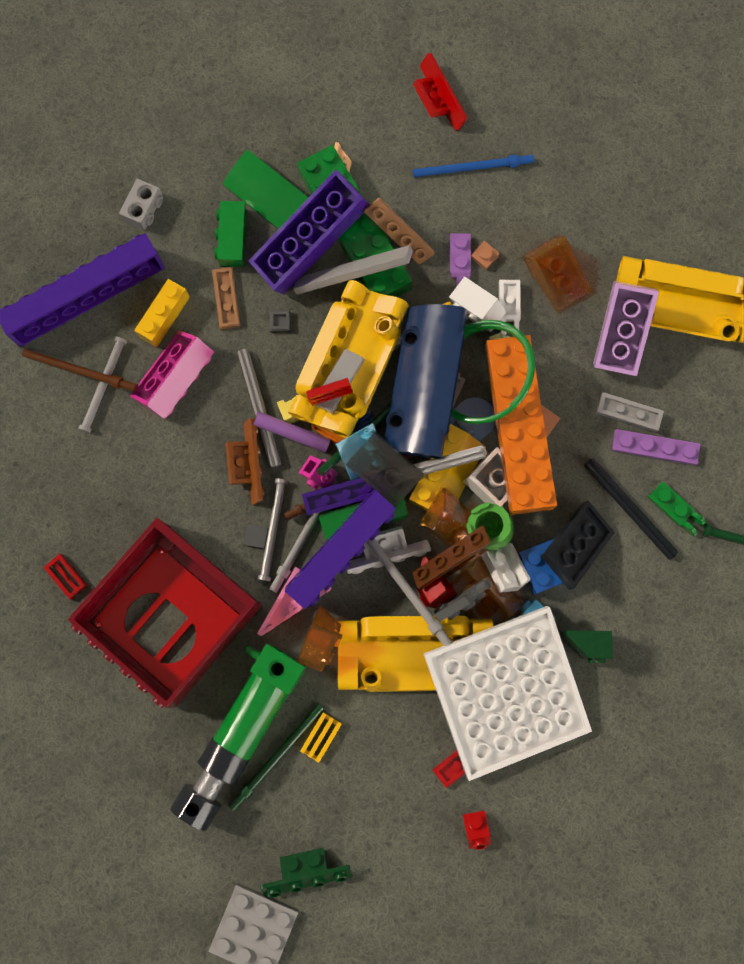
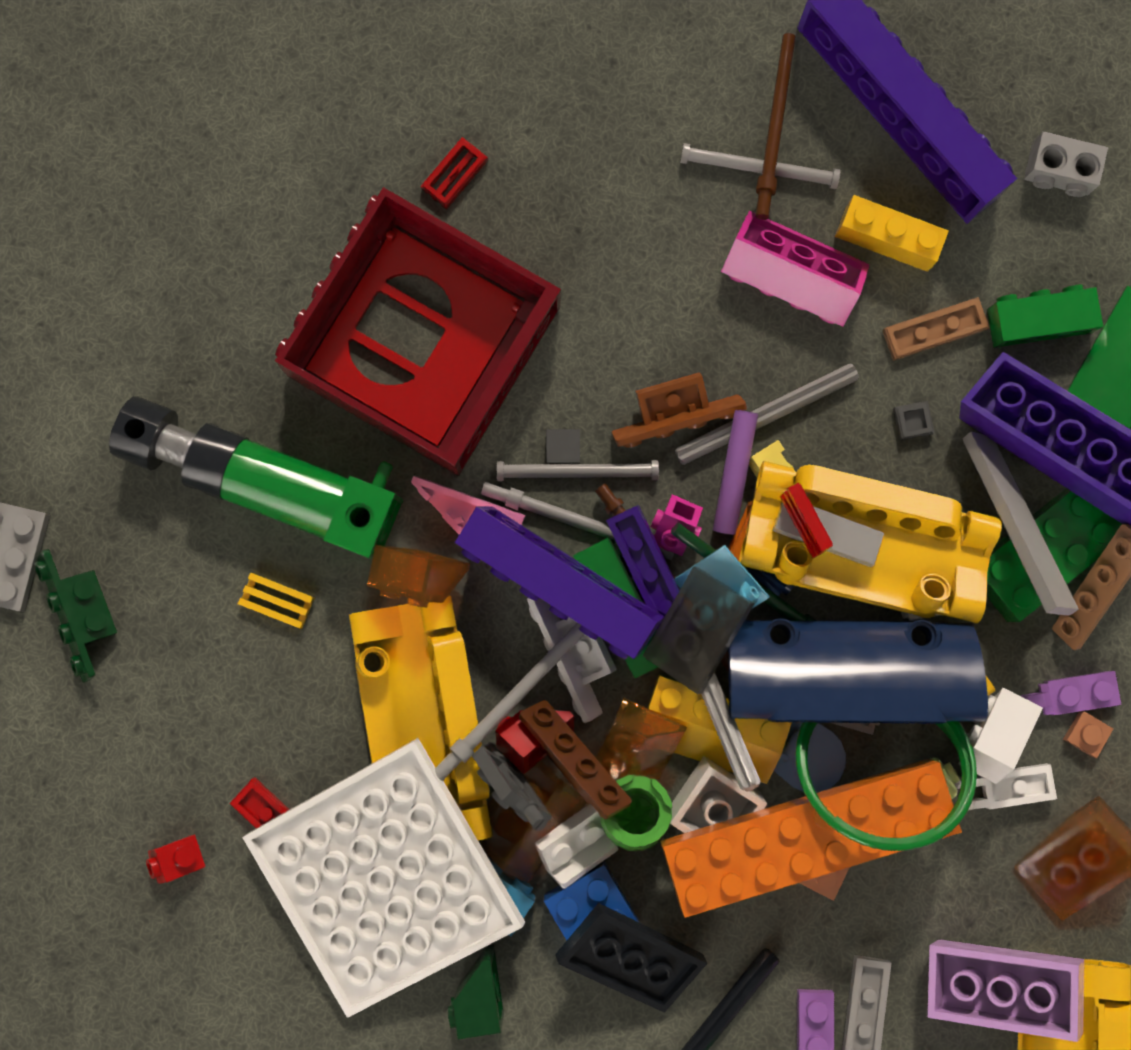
camera: 80 degrees right, 5 degrees up
(247, 790) = (183, 505): dark green bar -> none

